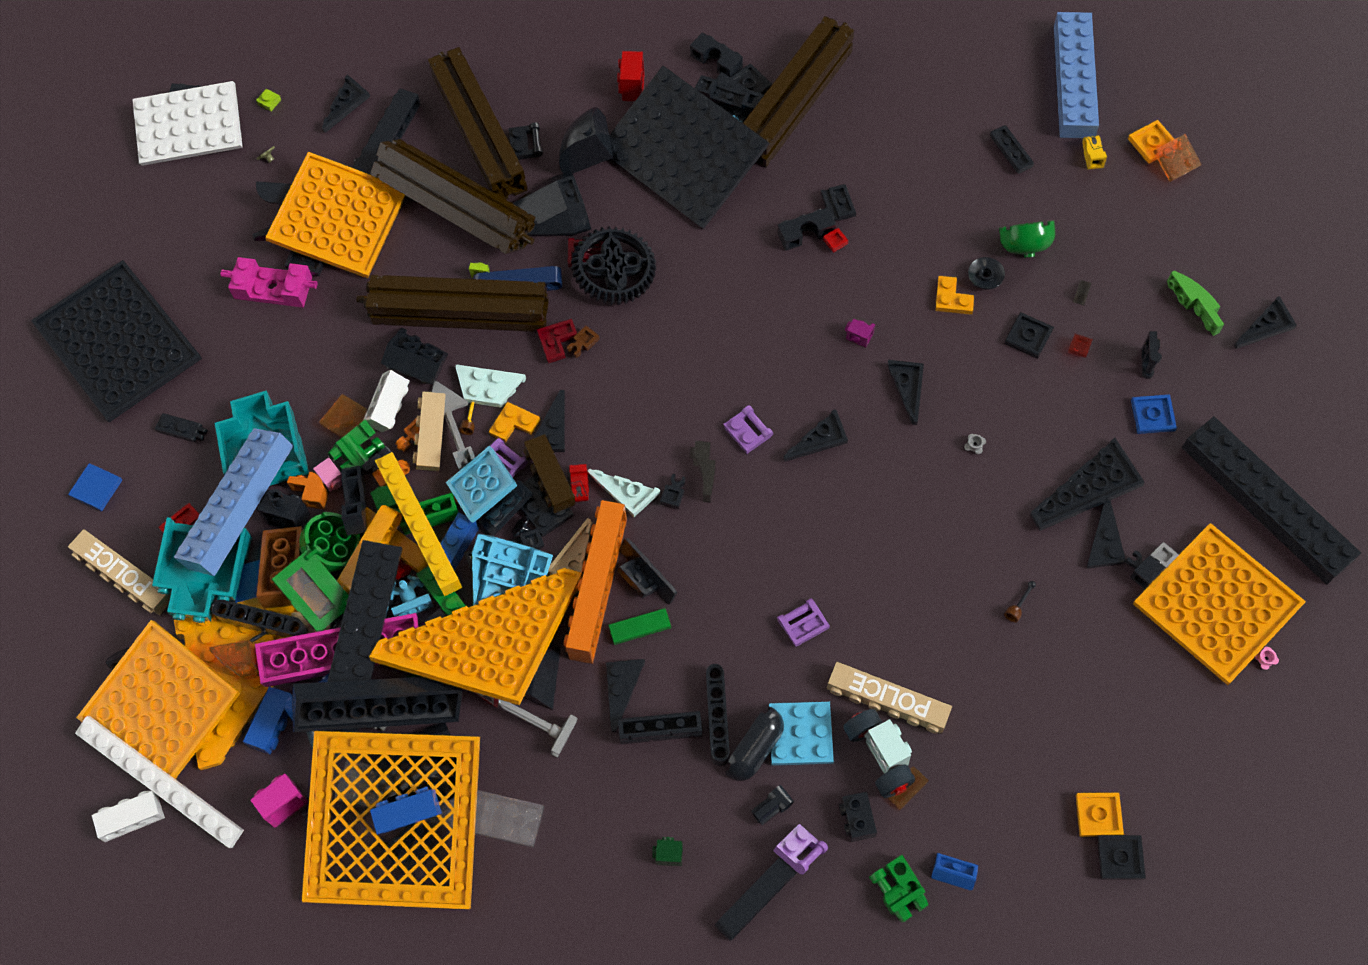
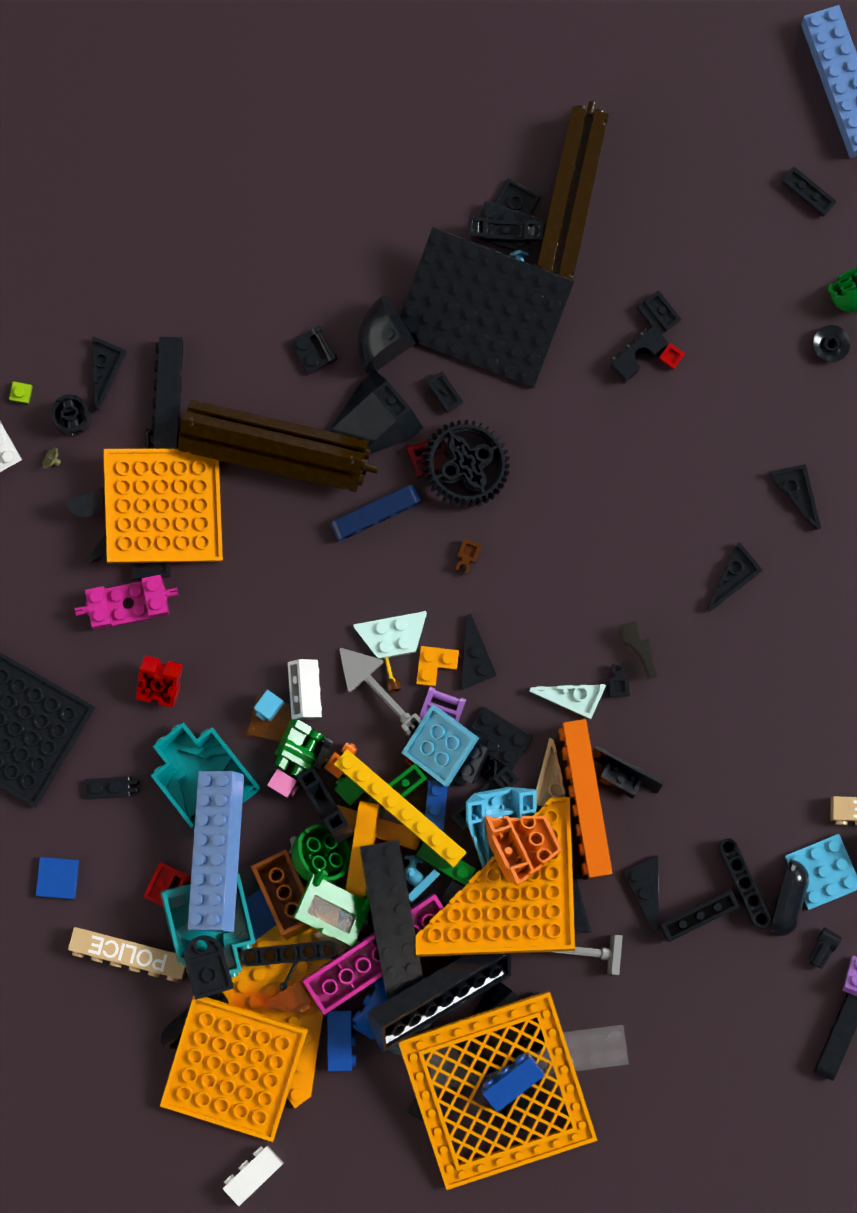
camera: 25 degrees left, 15 degrees up
(159, 782) = (266, 1135): white plate -> none
(174, 601) = (207, 969): none -> black tile
(262, 350) = (159, 681): none -> red brick
(279, 800) = (387, 1110): dark pink piece -> none
(283, 510) = (260, 838): black brick -> none
(298, 125) = (71, 415): none -> black brick
(313, 490) = (275, 802): orange brick -> none
(346, 402) = (268, 706): none -> medium azure brick
(404, 443) = (346, 709): orange plate -> none
(413, 357) = (310, 632): black wedge -> none
(430, 431) = (363, 706): tan brick -> none
(456, 303) = (327, 562): dark brown brick -> none
(475, 268) = (332, 514): lime plate -> none
(477, 124) = (258, 350): dark brown brick -> none
(515, 592) = (521, 845): none -> orange wedge
(549, 473) = (496, 709): dark brown brick -> none
(553, 335) = (435, 562): dark red plate -> none
(579, 482) = (526, 706): red leg -> none
(622, 206) = (444, 392): none -> black plate
(631, 75) = (396, 239): red brick -> none
(640, 626) = (639, 825): green tile -> none
(668, 852) = (749, 1024): dark green brick -> none
(706, 47) = (457, 174): black arch -> none
(743, 434) = (658, 595): medium lavender plate -> none
(806, 627) = (792, 770): medium lavender plate -> none
(859, 332) = (732, 451): magenta brick -> none
(950, 301) = (803, 383): light orange plate -> none

